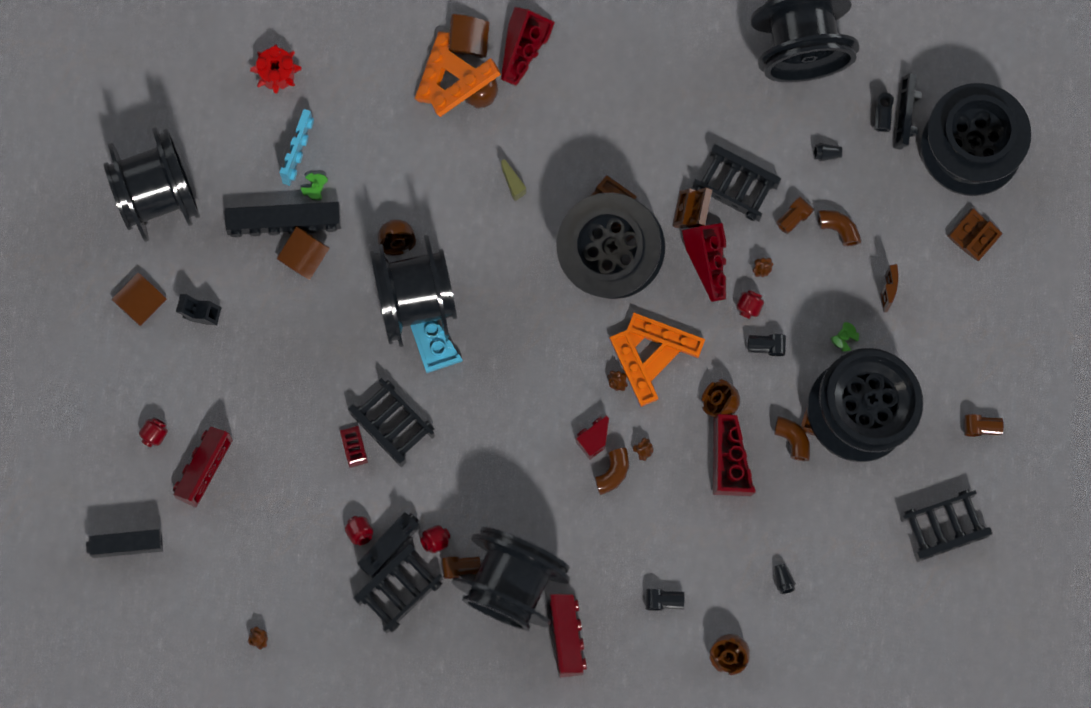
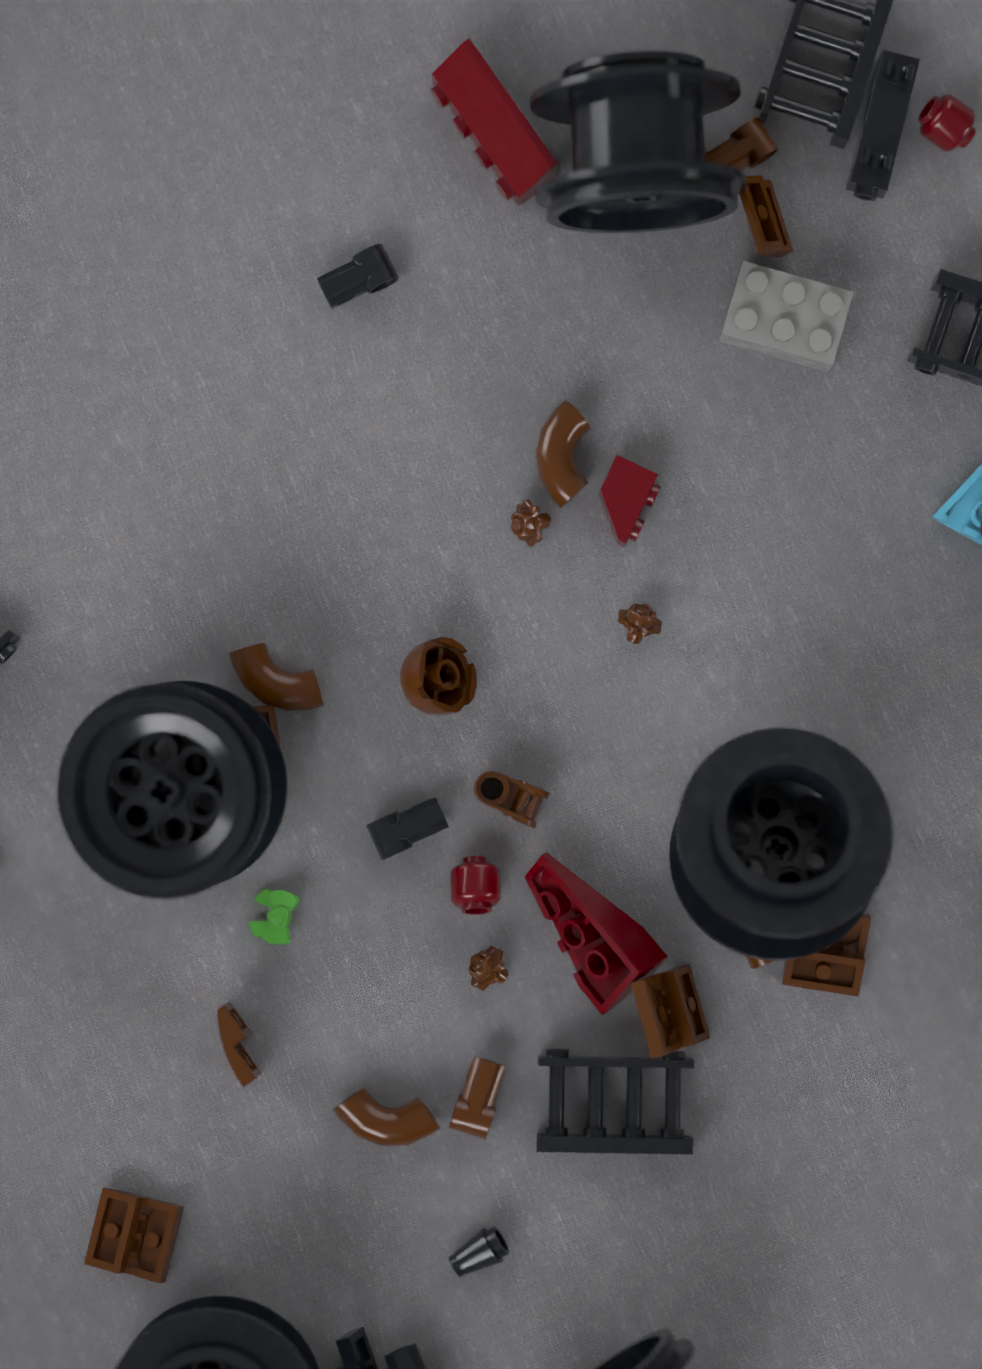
camera: 150 degrees right, 10 degrees up
(435, 539) = (808, 176): dark red head -> none
(466, 527) = (765, 218): none -> reddish brown slope
(480, 480) = (786, 316): none -> light grey brick
(672, 343) = (602, 656): orange plate -> none
(711, 332) = (513, 798): none -> reddish brown piece
(730, 462) = (363, 571): dark red wedge -> none
(730, 654) = (196, 237): reddish brown cylinder -> none
(784, 580) = (169, 420): black cone -> none

